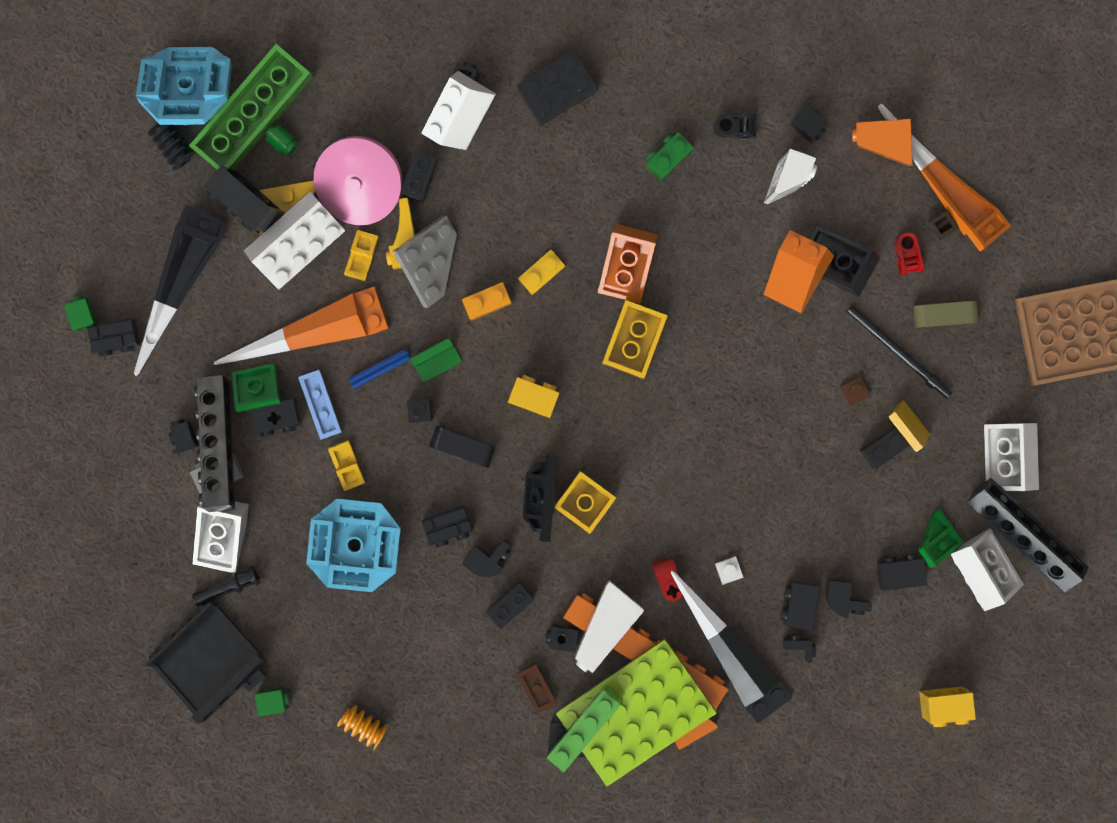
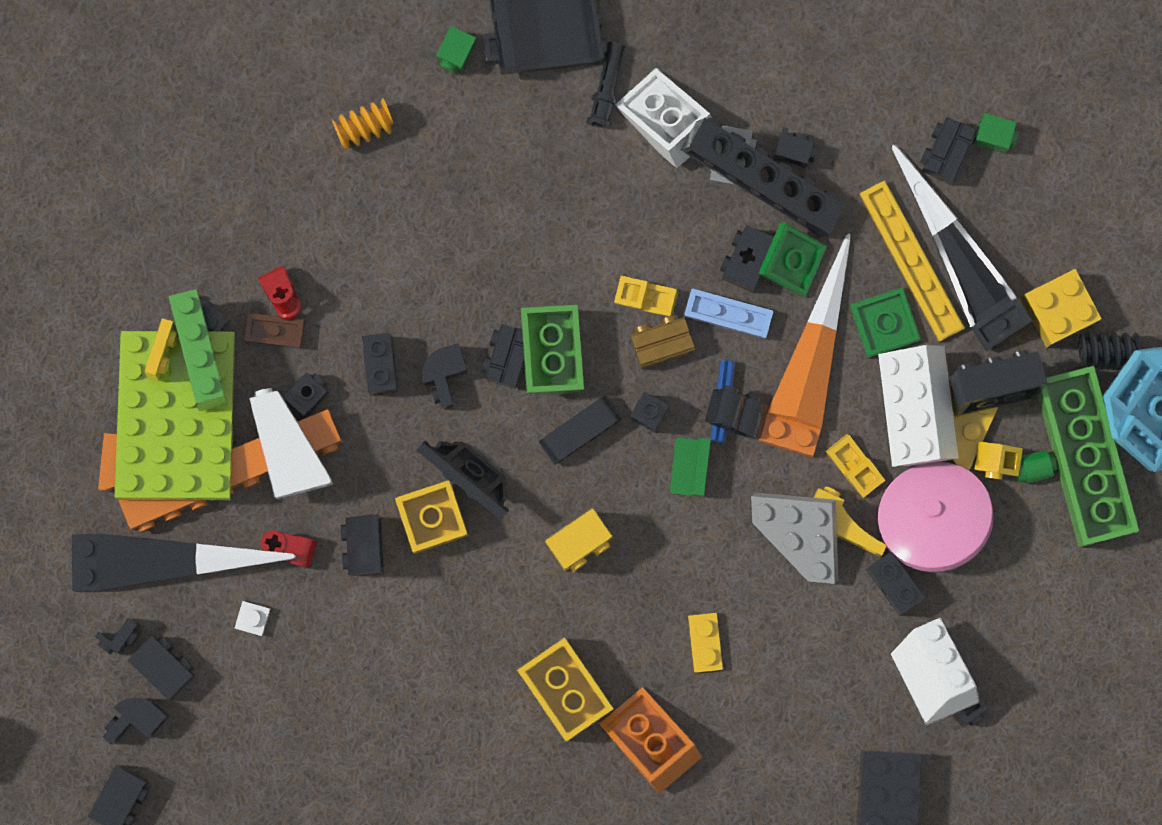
camera: 130 degrees right, 5 degrees down
(166, 192) = (1061, 308): none -> yellow brick
(203, 311) = (911, 261): none -> yellow tile
(255, 300) = (885, 322): none -> green tile
(293, 166) = (998, 460): none -> yellow brick
(330, 548) = (551, 216): medium azure piece -> none
(368, 434) = (662, 342): none -> pearl gold brick
(380, 354) = (737, 412): none -> black brick
(423, 500) = (552, 350): none -> bright green slope
(486, 301) = (714, 562): light orange brick -> none
(509, 701) = (281, 293): none -> red piece
(608, 749) = (158, 361): none -> yellow plate
(633, 532) = (363, 545): none -> black slope

